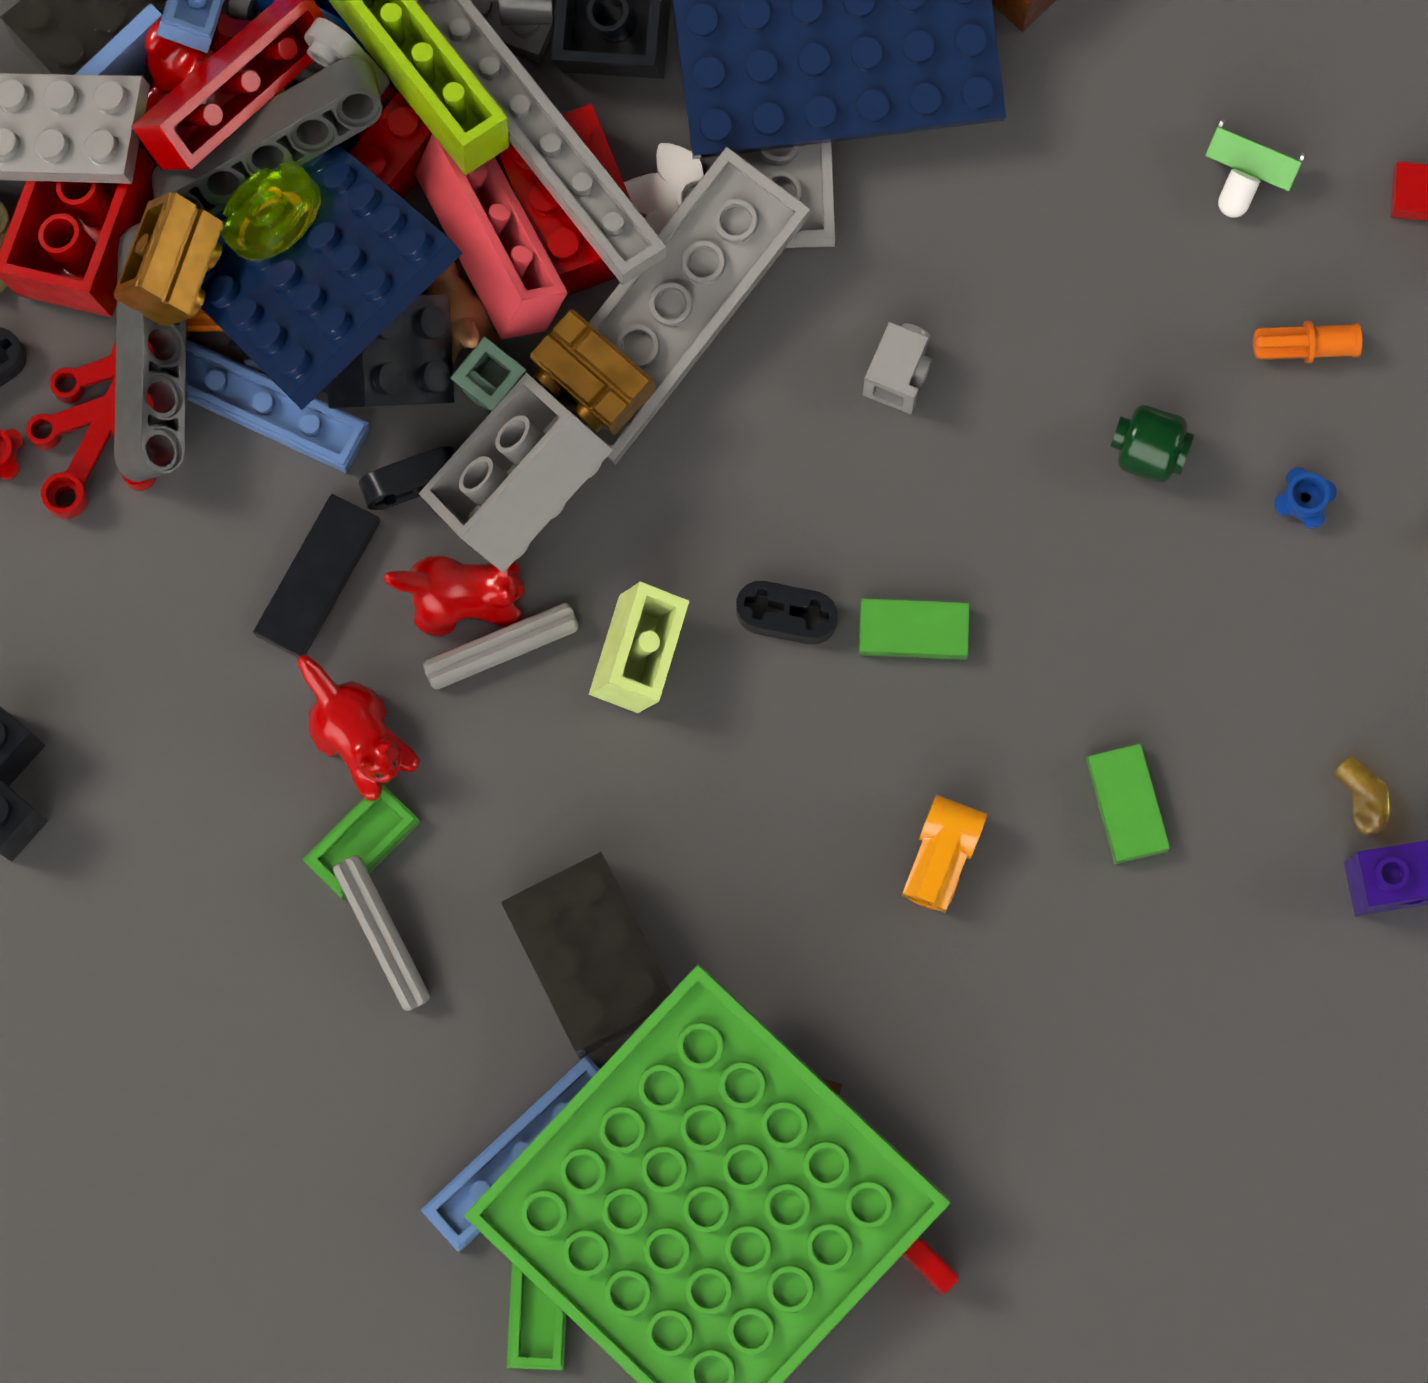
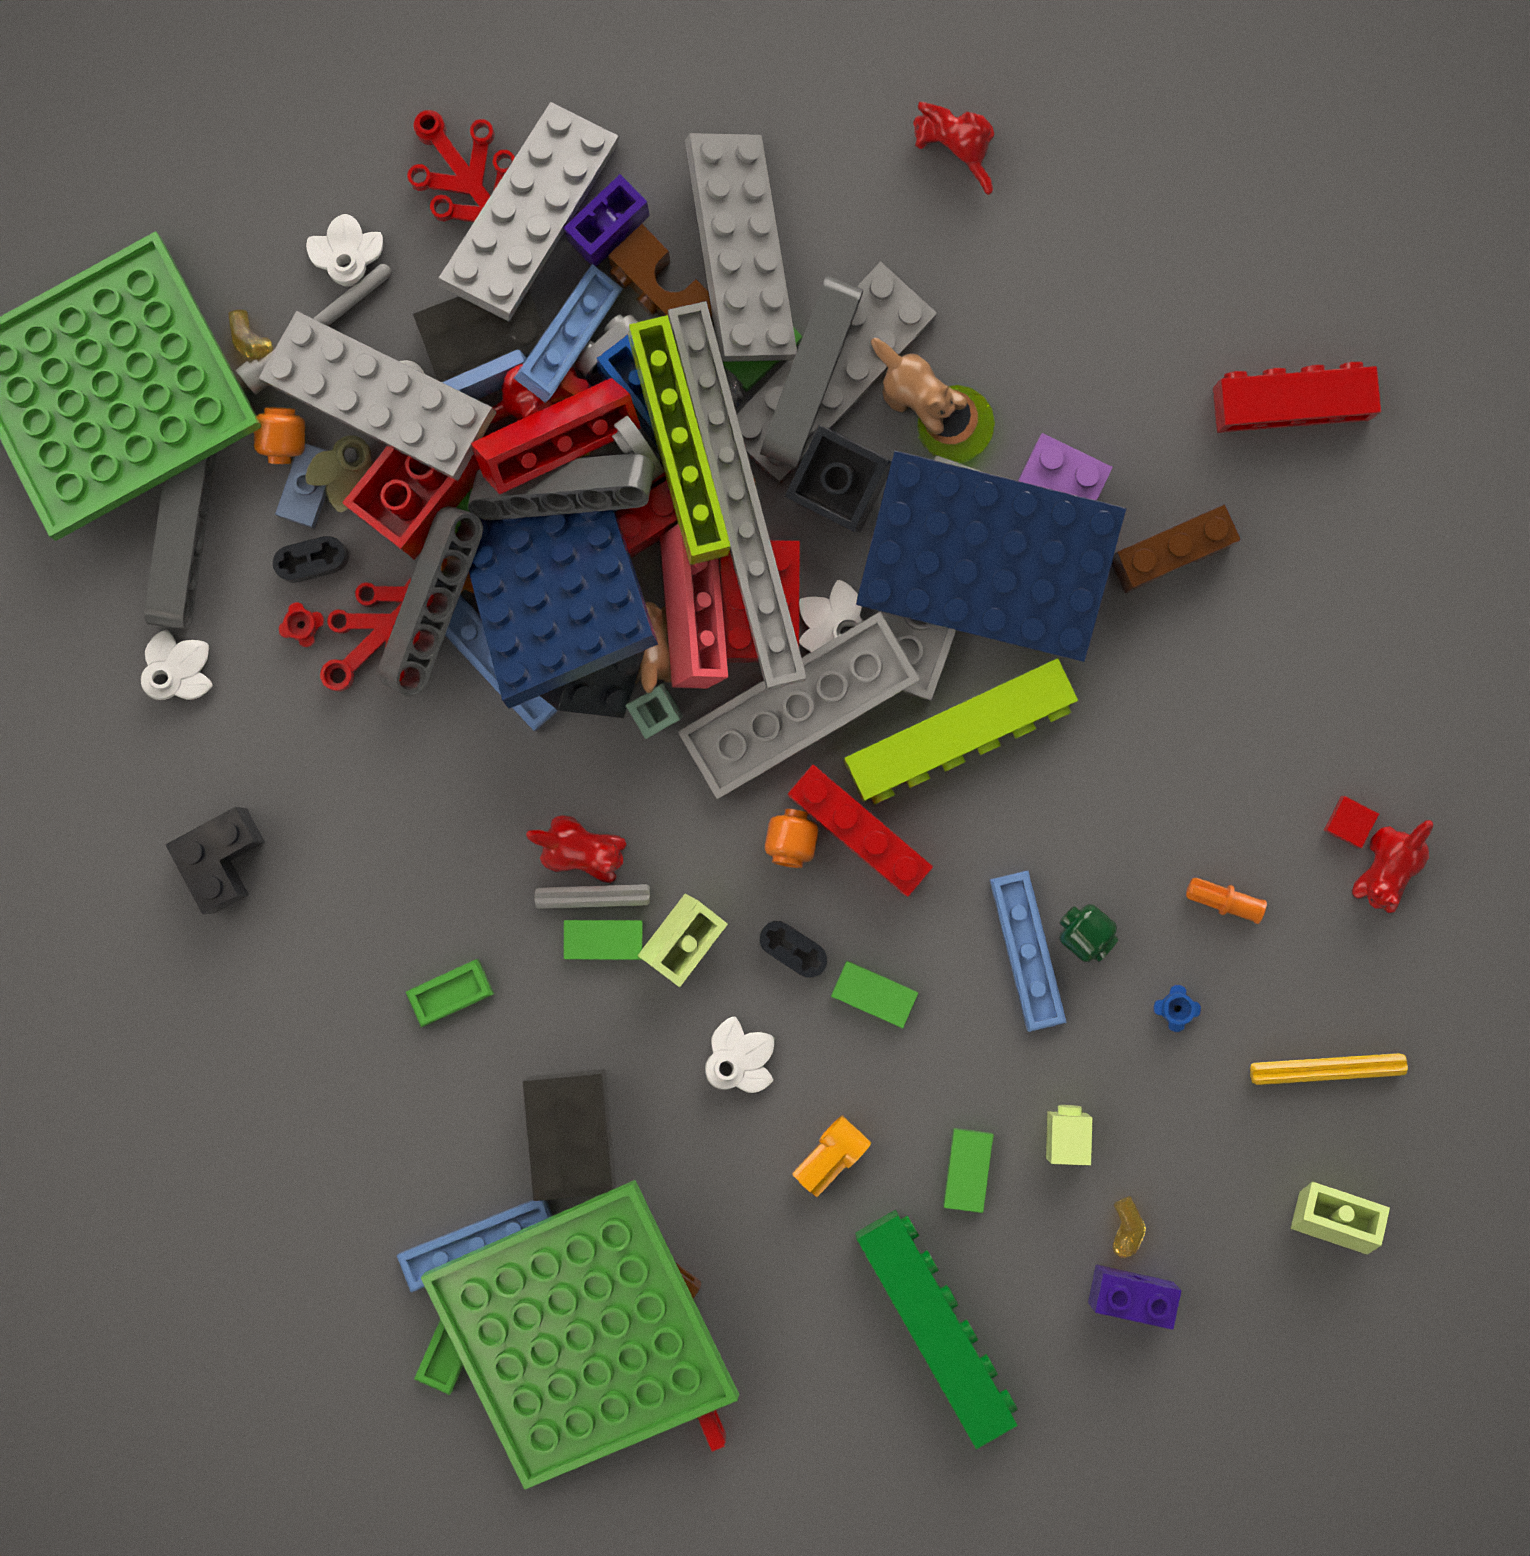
camera: 20 degrees right, 10 degrees up
(170, 260) = (462, 552): pearl gold brick -> none
(271, 212) = (545, 543): clear neon green tile -> none
(317, 576) = (487, 798): black tile -> none
(351, 724) = (471, 914): red animal -> none
(381, 933) = (438, 1063): light grey axle -> none
(402, 479) = (575, 756): black beam -> none
(515, 473) = (643, 790): light grey brick -> none
(536, 695) = (603, 939): none -> bright green tile
(591, 373) = (723, 738): pearl gold brick -> none
(728, 473) = (791, 839): none -> orange head
(777, 769) = (743, 1053): none -> white plate
(810, 429) = (859, 831): none -> red brick
(886, 264) = (960, 730): none -> lime brick
(898, 366) = (939, 808): light grey brick -> none
(1086, 501) = (1027, 951): none -> medium blue tile
(1175, 1020) = (936, 1329): none -> green brick
(1238, 706) = (1069, 1136): none -> yellowish green brick
(1251, 163) = (1241, 758): piece -> none

